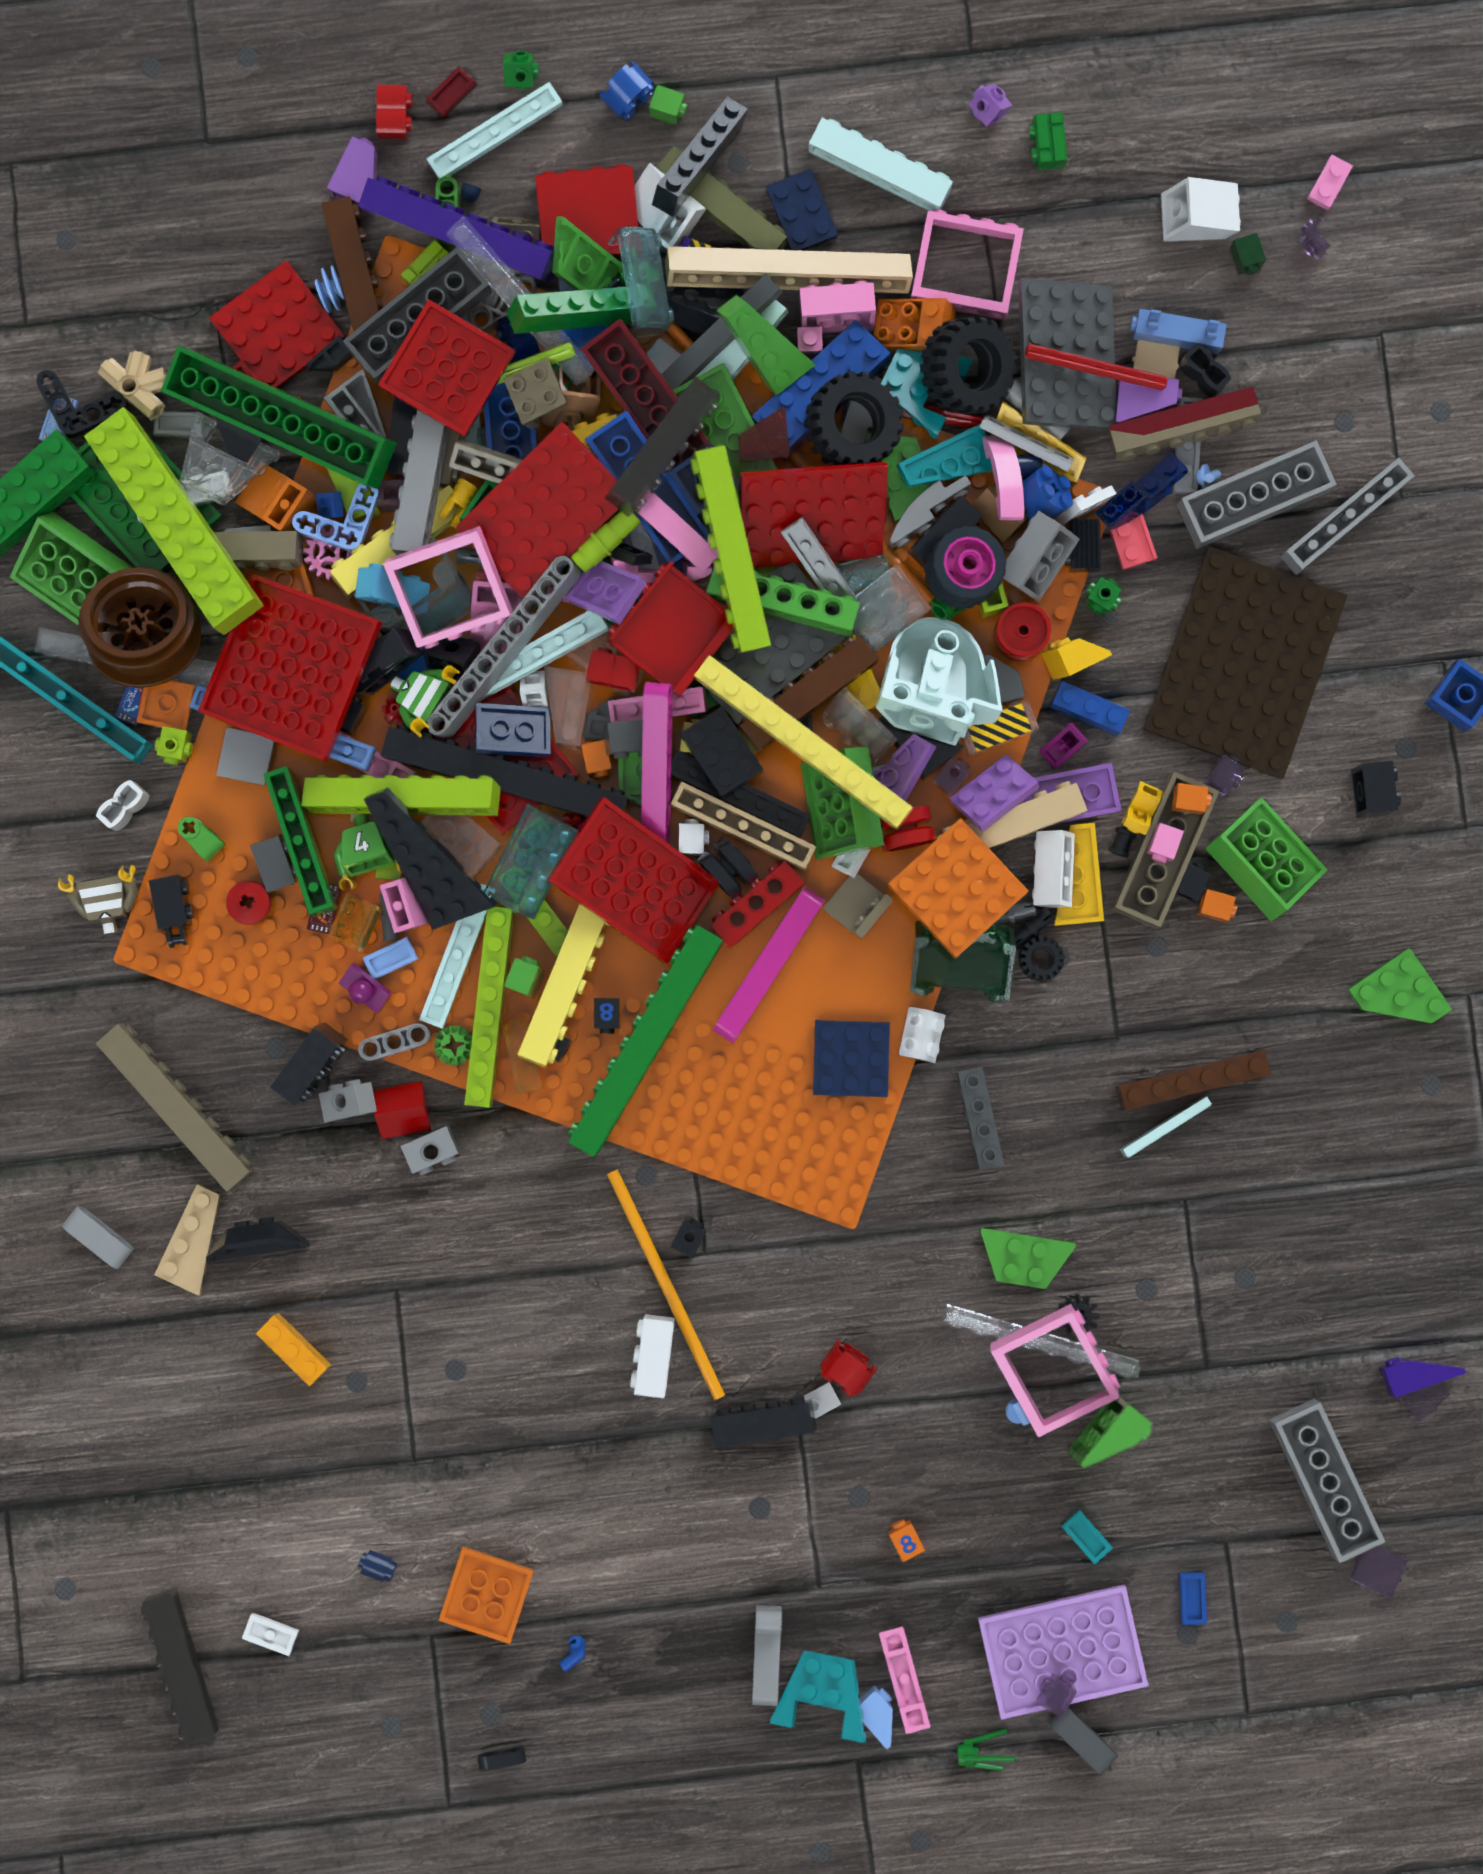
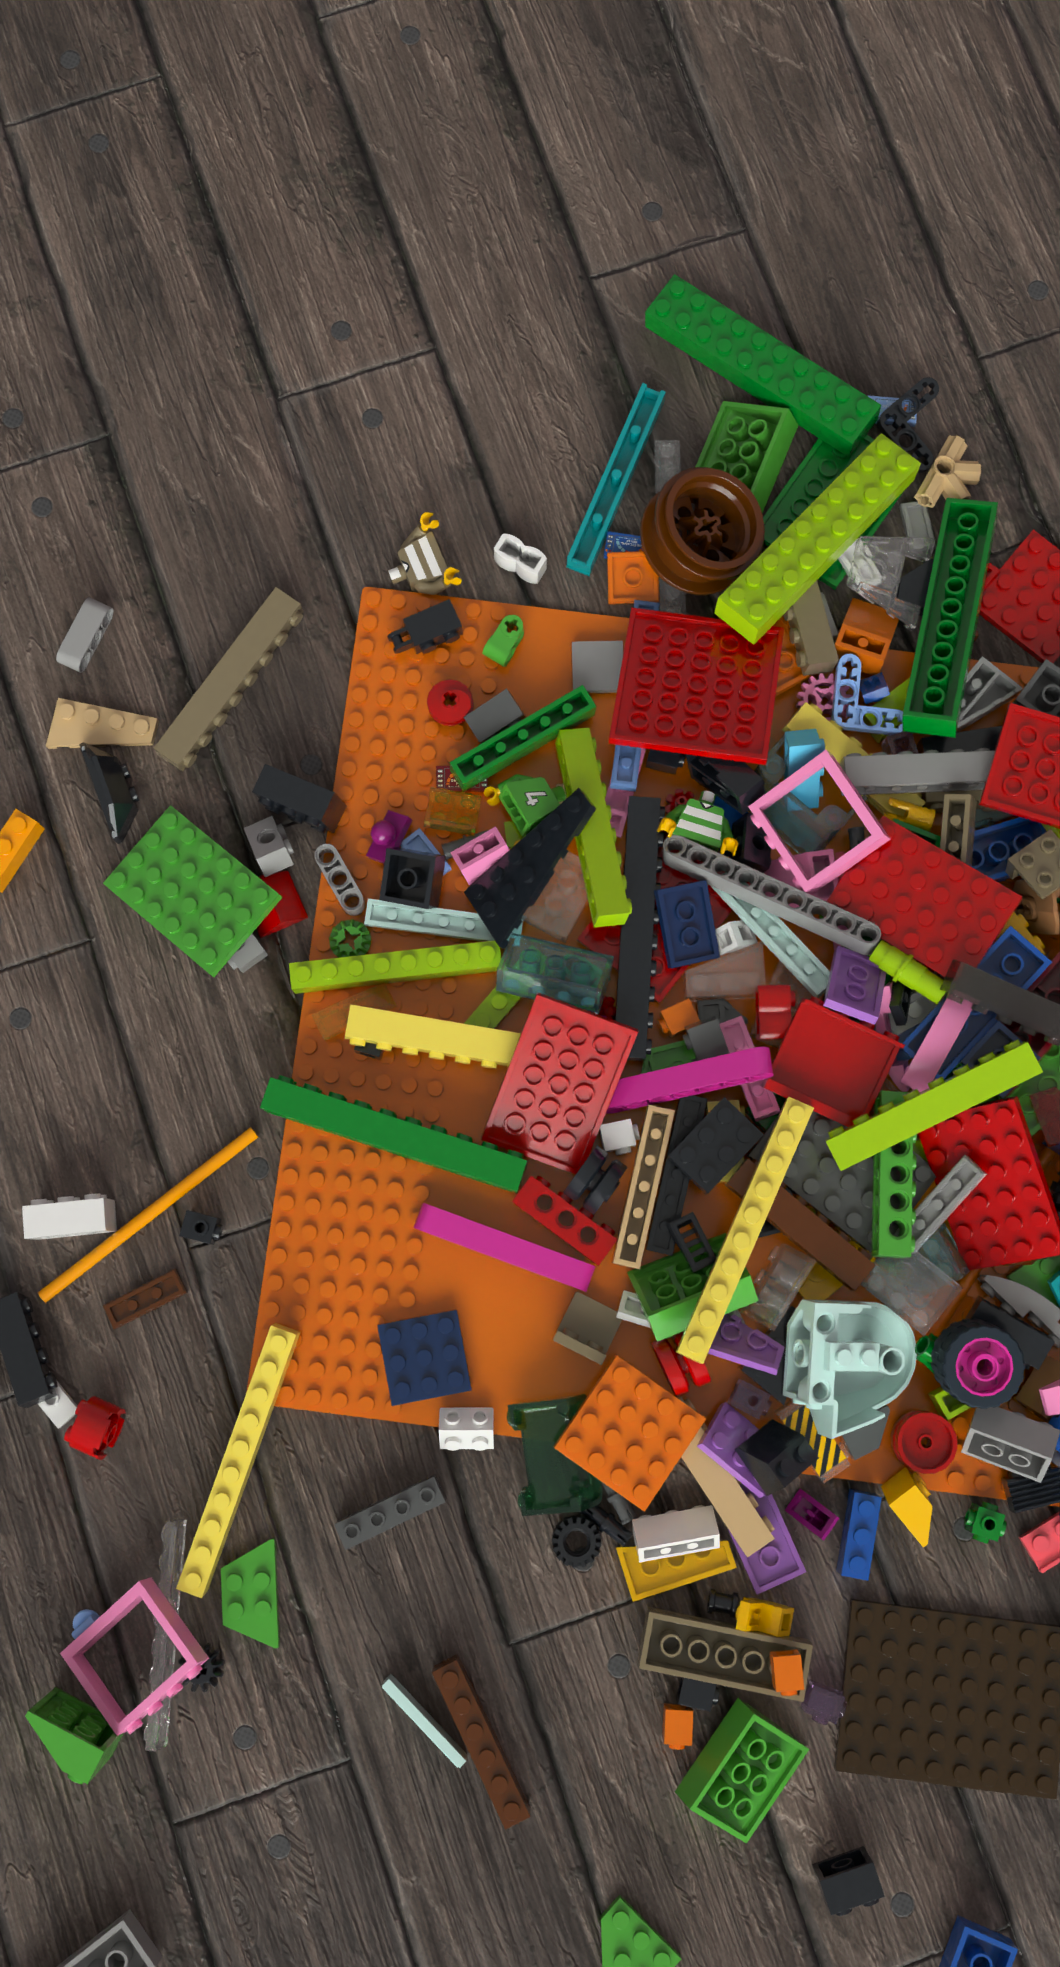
camera: 75 degrees right, 5 degrees down
(174, 737) = (592, 594): lime brick -> none
(331, 357) = (1024, 656): black tile -> none
(373, 1182) = (192, 891): none -> bright green plate
(410, 973) = (412, 877): none -> black brick
(525, 976) = (433, 994): bright green brick -> none
(607, 1015) = (414, 1089): black brick -> none
(742, 1303) = (145, 1299): none -> reddish brown tile
(791, 787) = (701, 1238): none -> black slope
(904, 1244) = (238, 1460): none -> light yellow brick
(1006, 763) = (776, 1455): none -> black slope
(1164, 843) = (731, 1652): bright pink brick -> none

